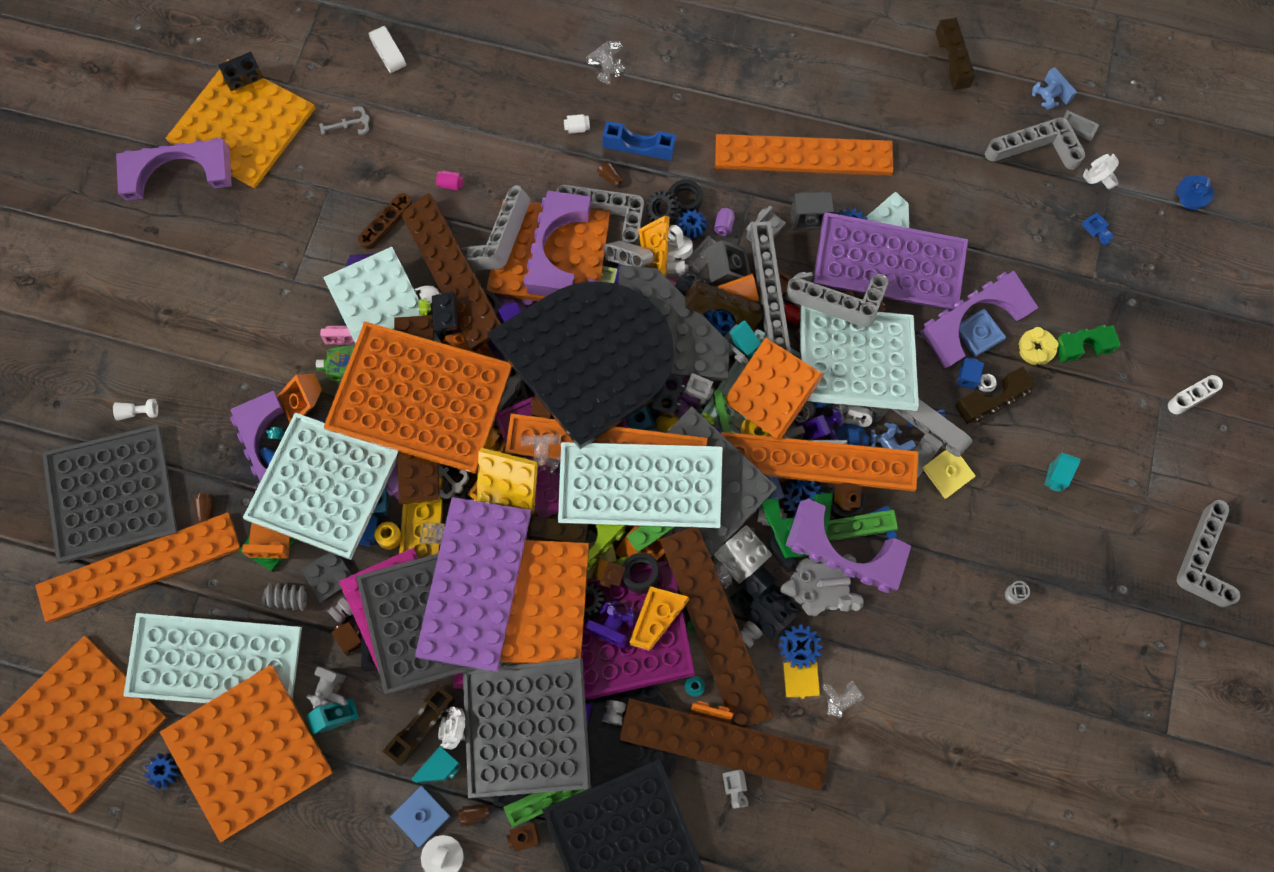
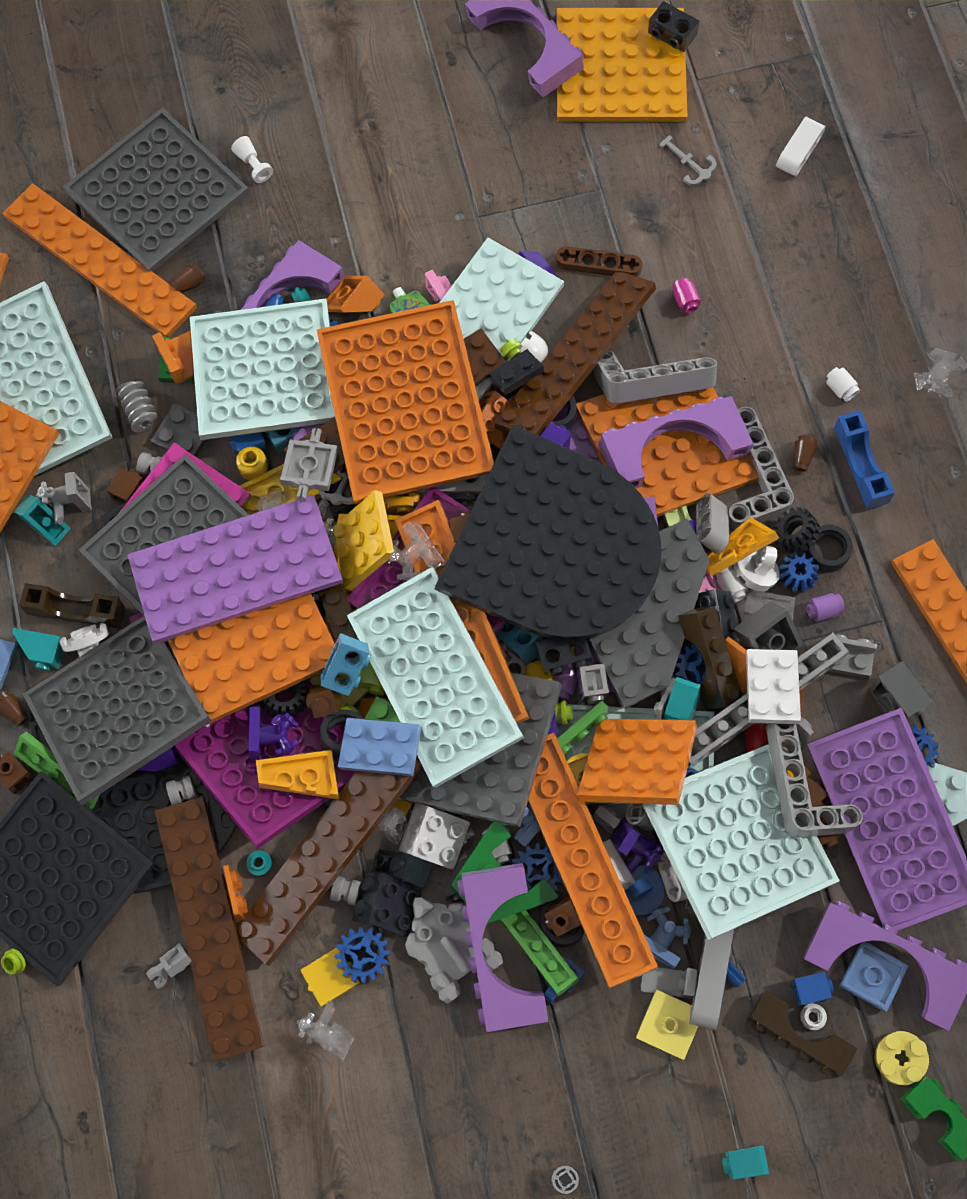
camera: 65 degrees right, 0 degrees up
(427, 488) = (309, 465): none -> light grey plate
(596, 541) = (340, 663): none -> dark azure brick
(670, 549) = (379, 747): none -> medium blue plate
(769, 277) = (773, 686): none -> white plate

